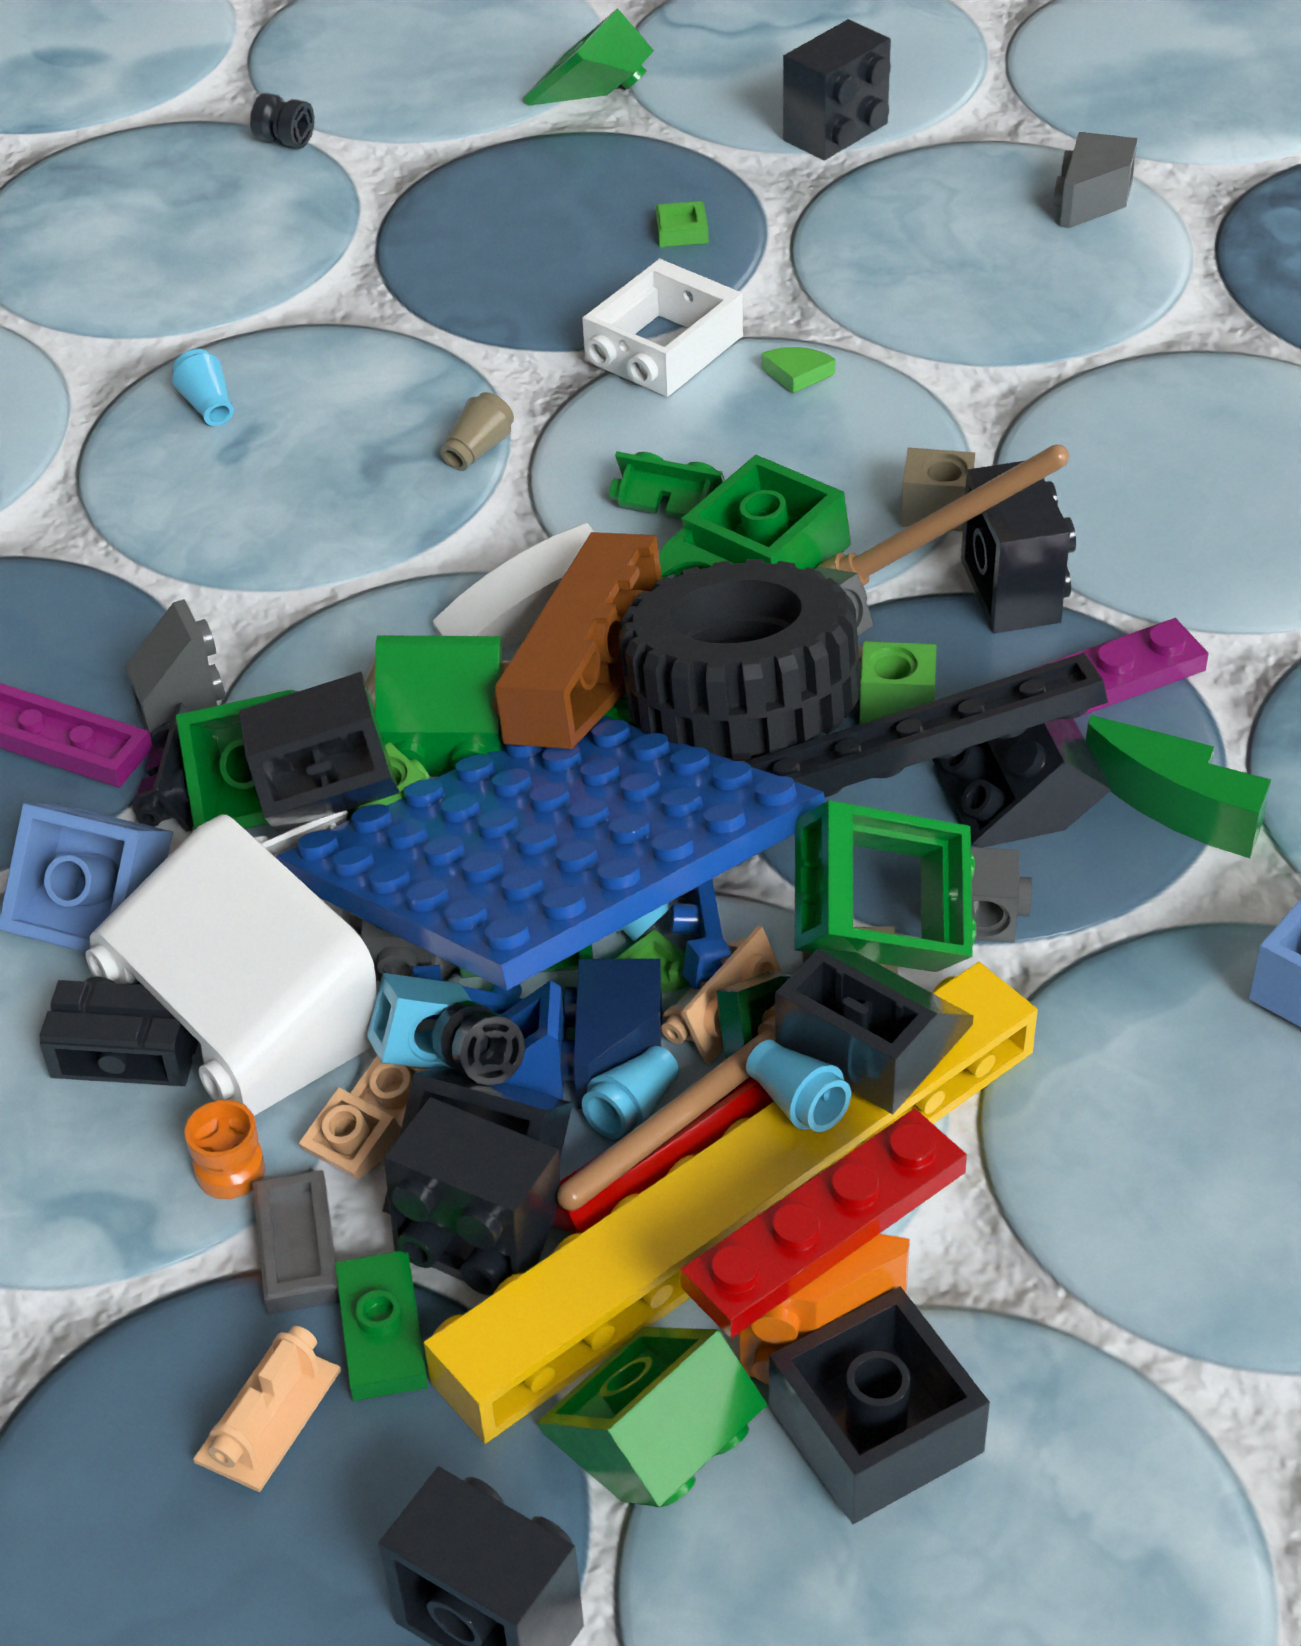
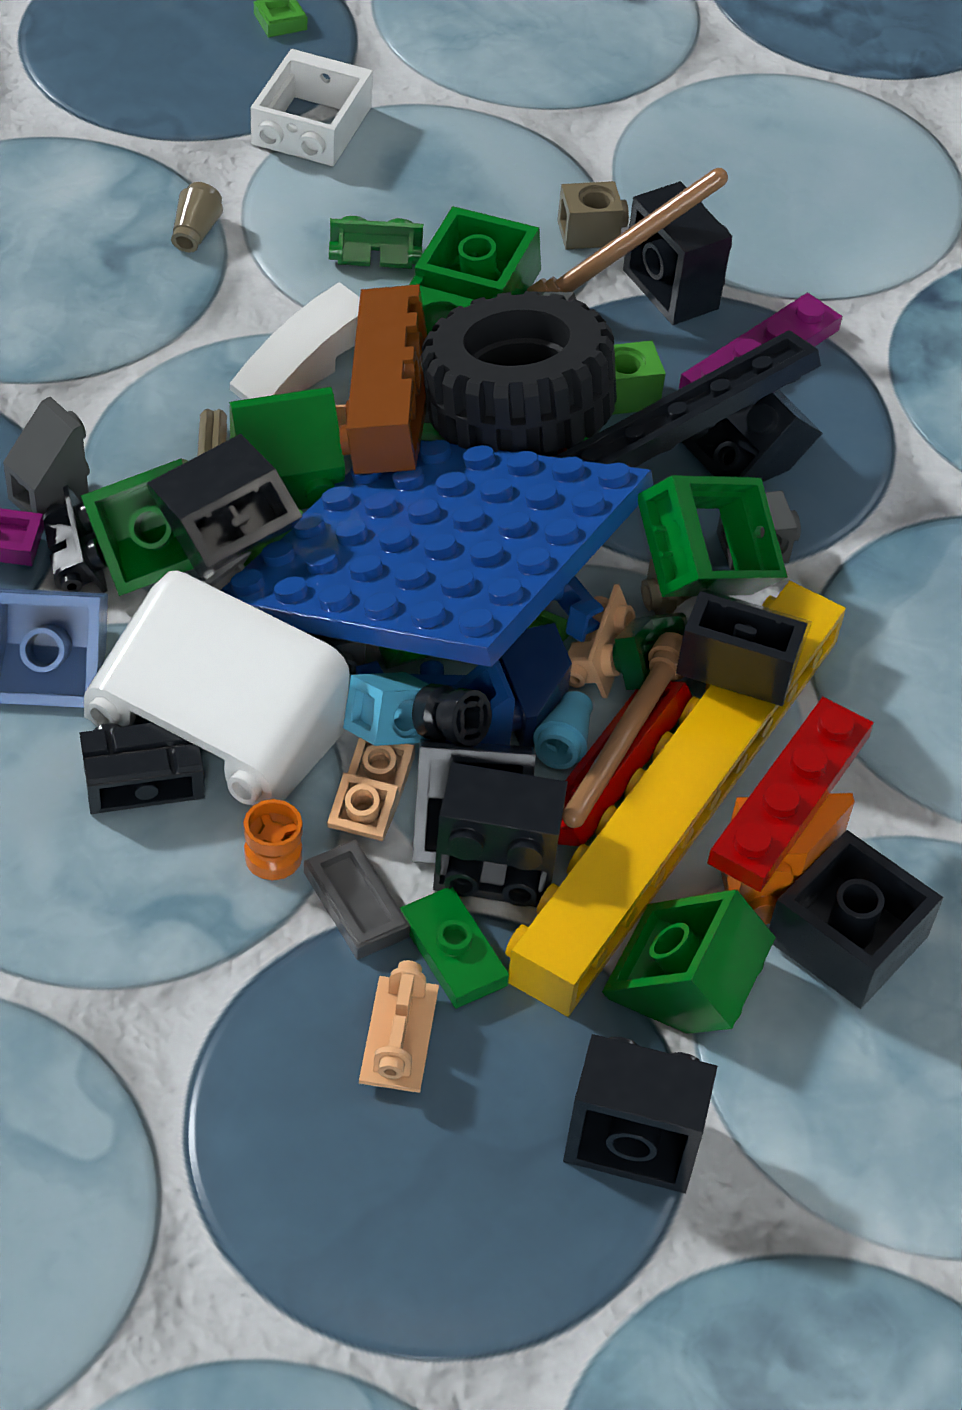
camera: 25 degrees left, 5 degrees up
(798, 366) = (430, 127): bright green tile -> none
(801, 1086) = (712, 698): medium azure cone -> none
(1179, 784) = (866, 422): green slope -> none

